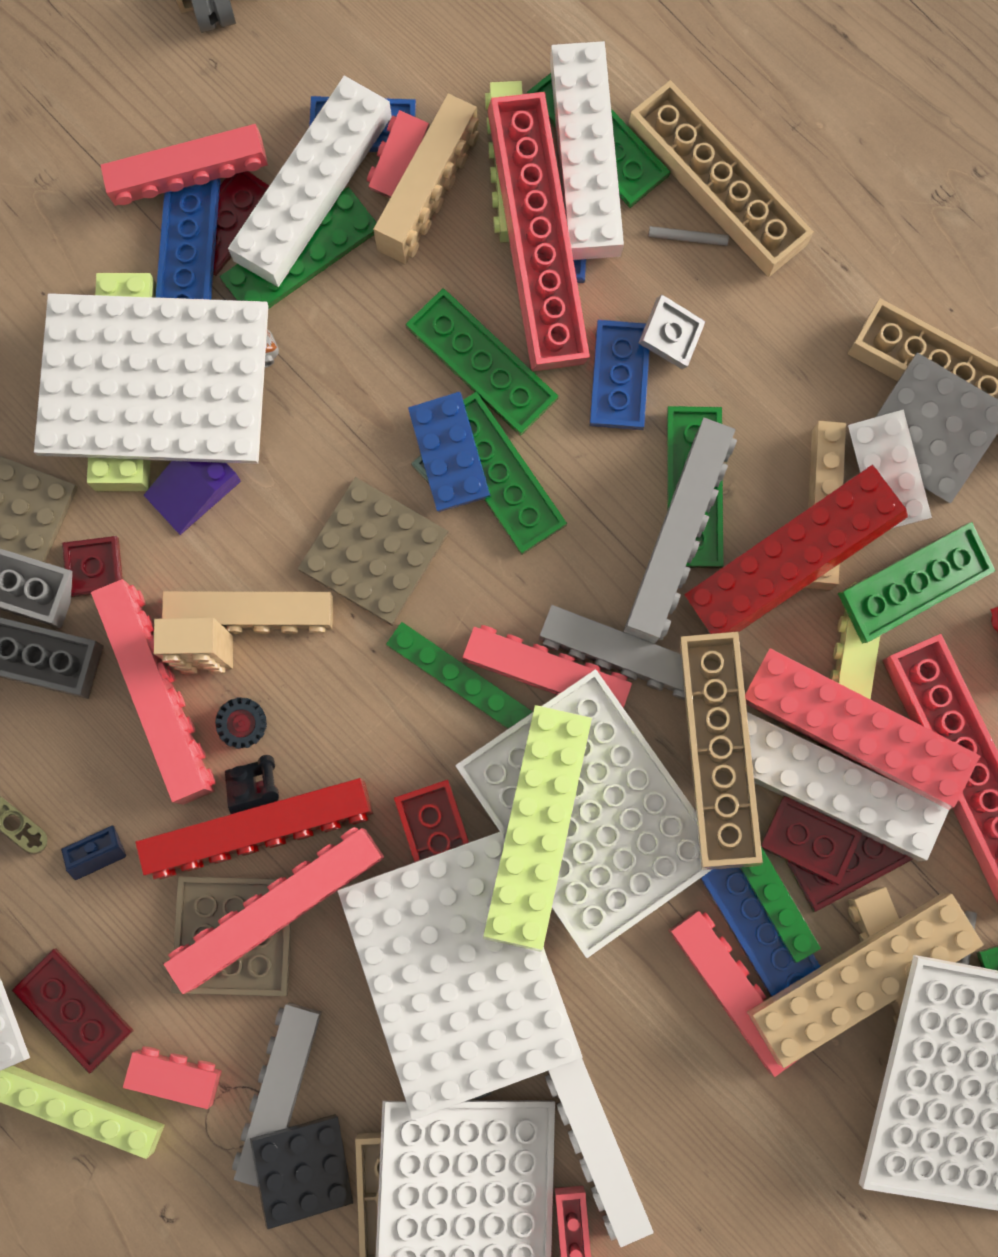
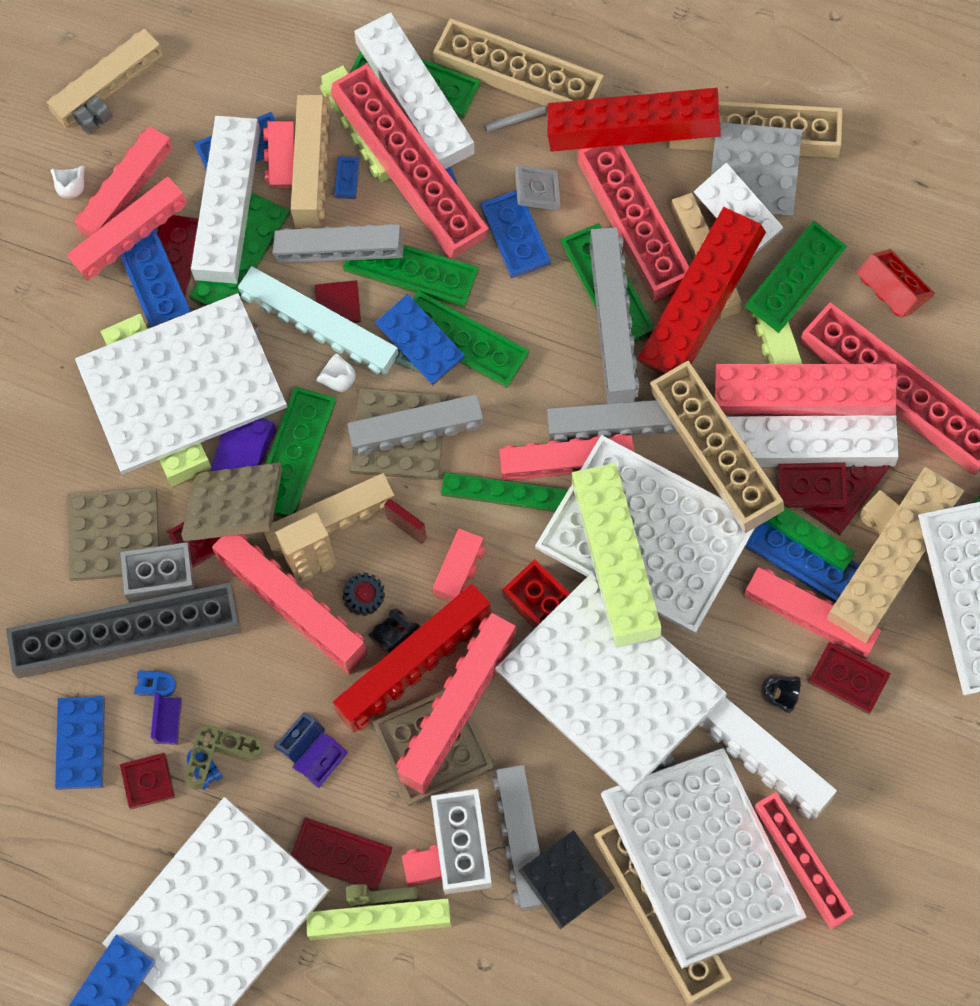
camera: 20 degrees left, 10 degrees down
(63, 1079) = (360, 896): none -> olive beam
(101, 890) = (320, 759): none -> dark purple panel
(142, 548) = (232, 502): none -> dark tan plate
(150, 78) = (69, 182): none -> white hair
(199, 1077) = (461, 841): none -> white brick
(214, 106) = (125, 181): none -> coral brick
(246, 517) = (299, 444): none -> green plate
(327, 661) = (405, 521): none -> dark red tile
(334, 442) = (337, 374): none -> white hair
(347, 374) = (318, 321): none -> light aqua brick
(363, 741) = (459, 565): none -> coral brick
(381, 362) = (340, 298): none -> dark red tile
(392, 552) = (415, 425): none -> light grey brick
(413, 294) = (338, 243): none -> light grey brick
(462, 217) = (347, 177): none -> blue plate
(658, 1075) = (789, 689): none -> black hair
(739, 1089) = (849, 678): none -> dark red plate
(765, 420) = (636, 218): none -> coral brick
(822, 304) = (633, 119): none -> red brick

